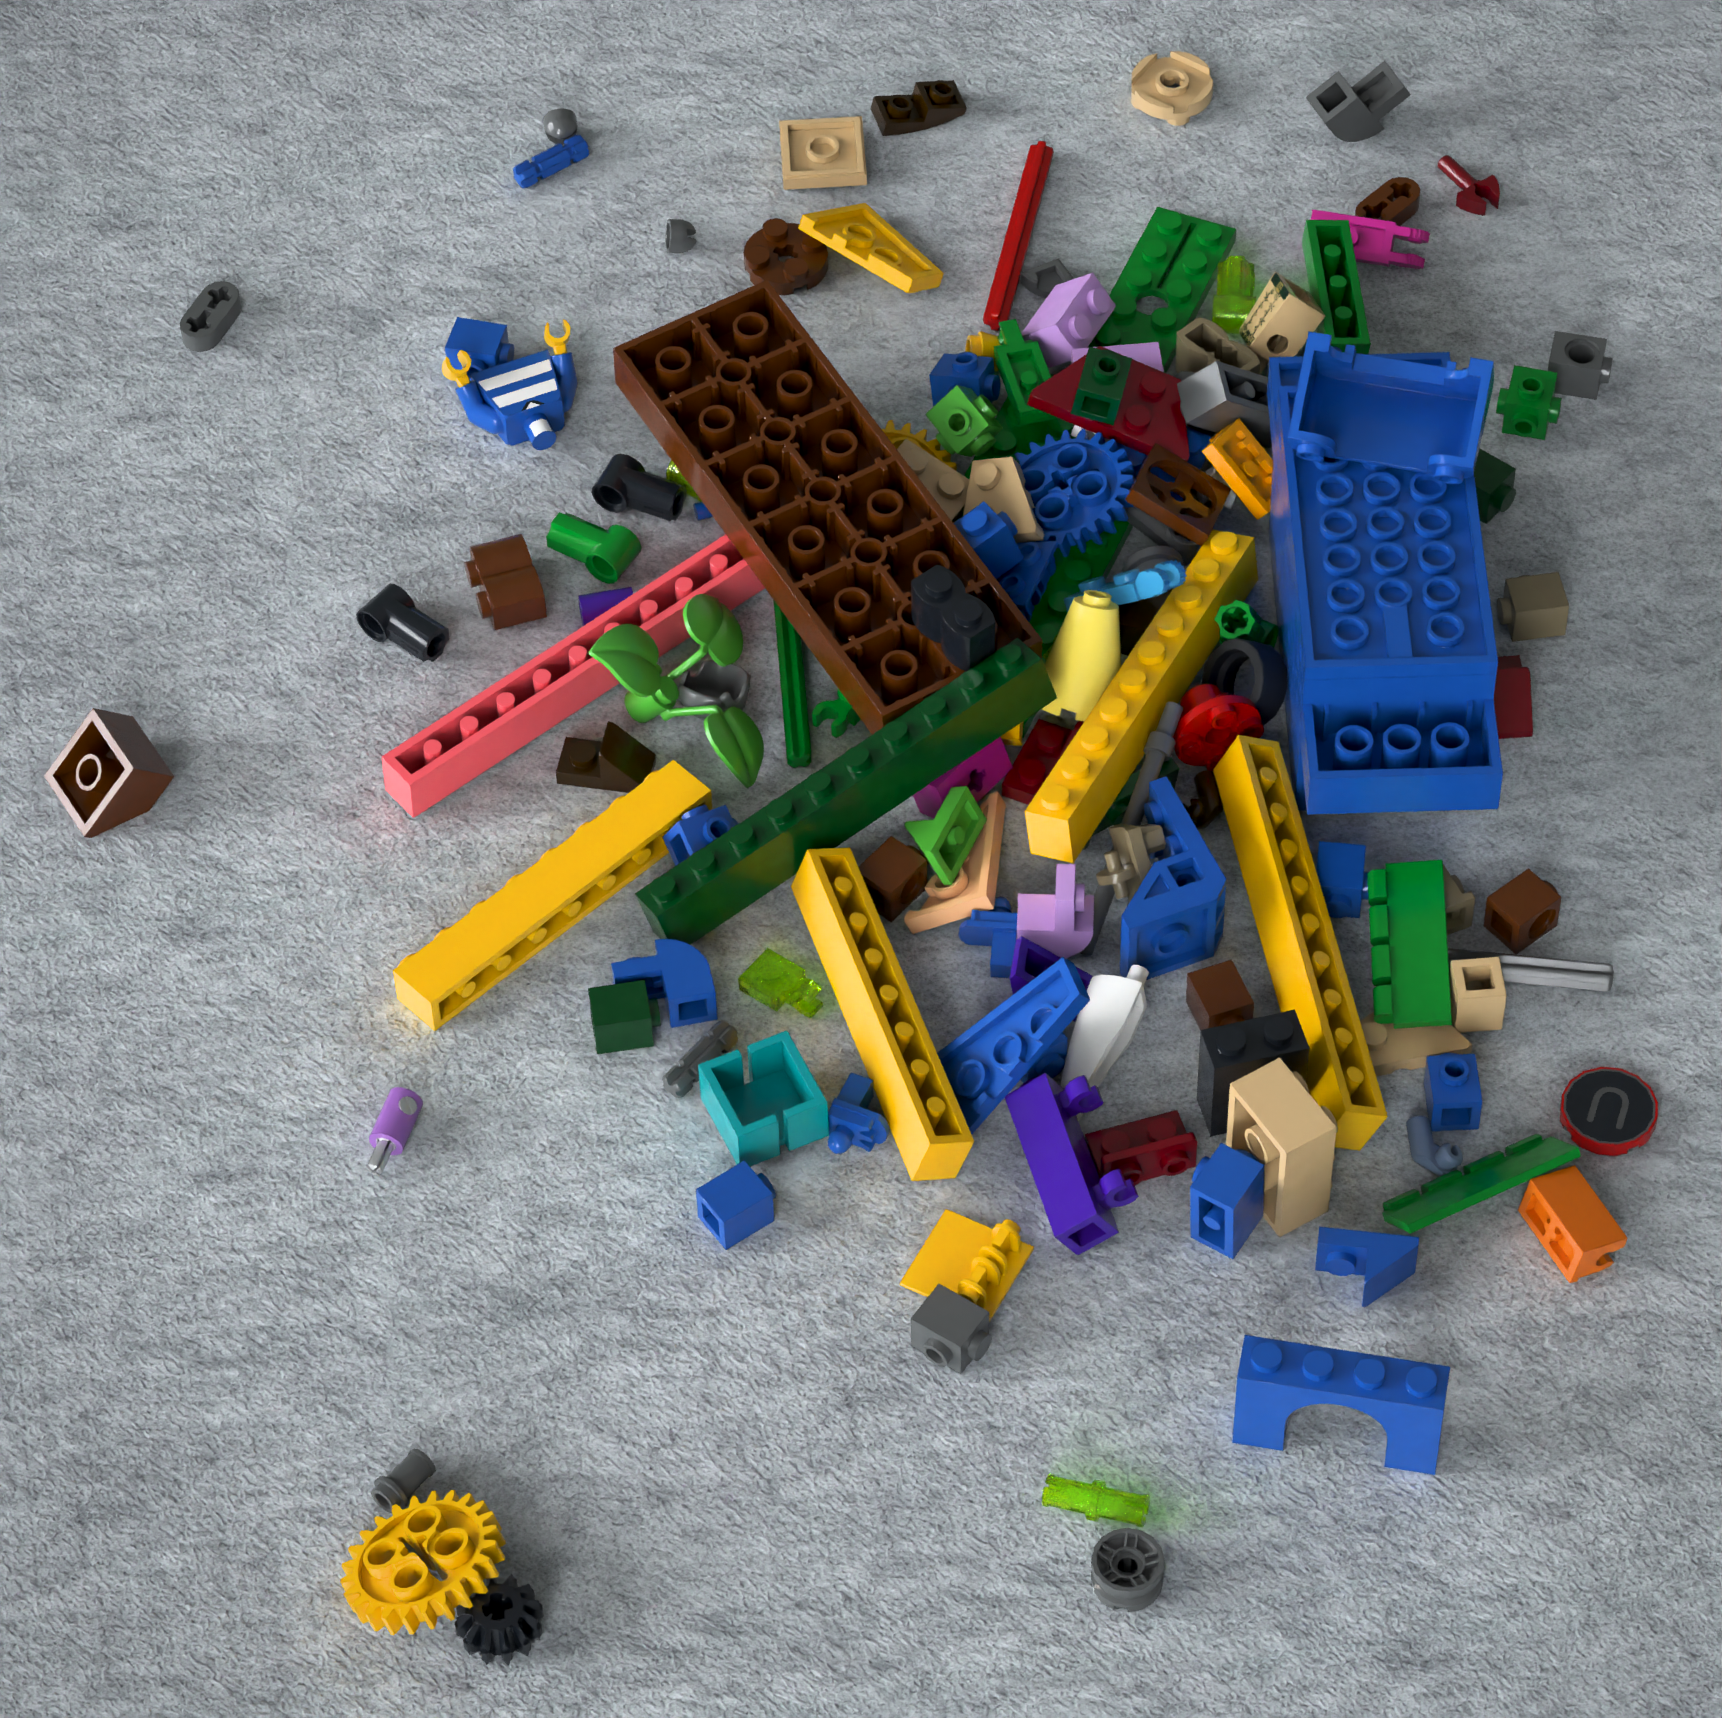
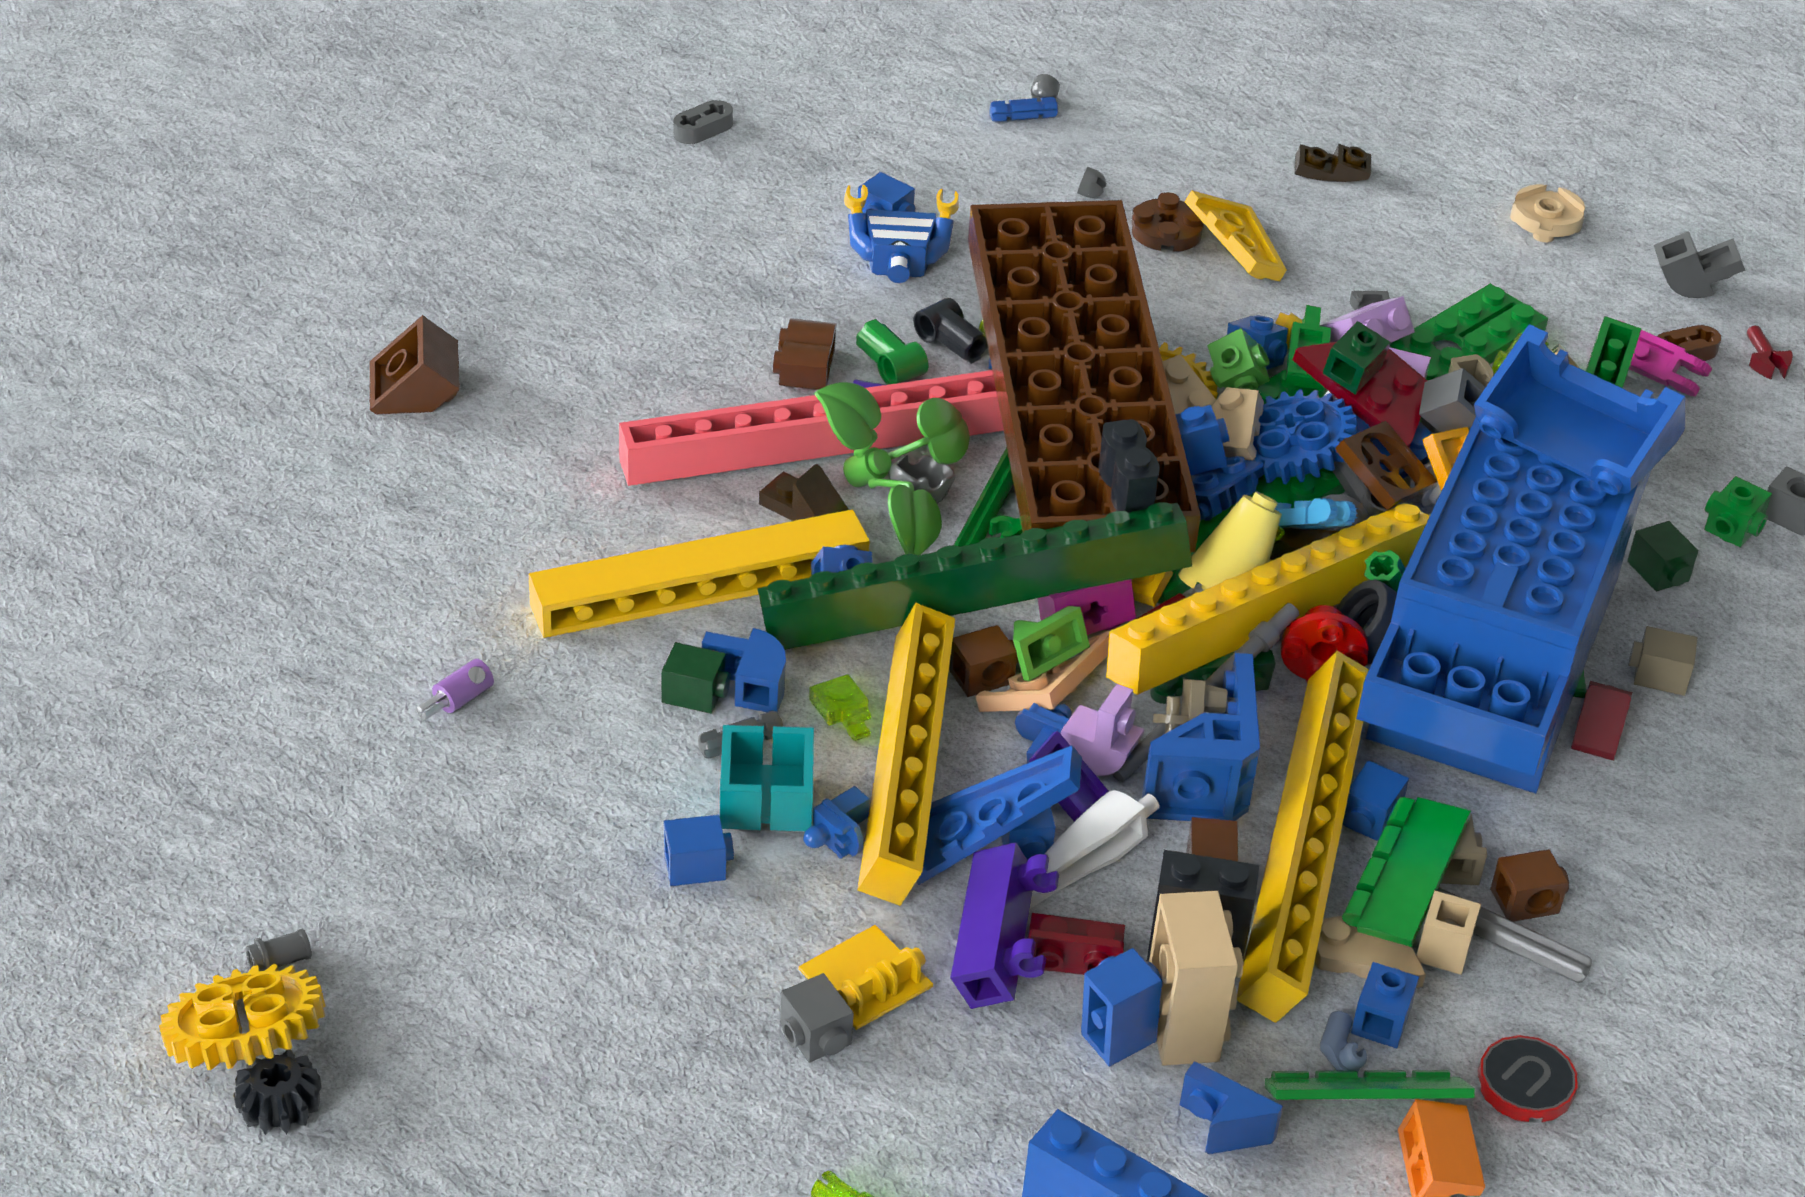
camera: 20 degrees right, 10 degrees down
(396, 618) = (706, 350): black piece -> none
(822, 153) = (1238, 167): tan plate -> none
(1018, 235) = (1367, 263): red axle -> none
(1209, 802) = (1286, 709): dark brown arm -> none

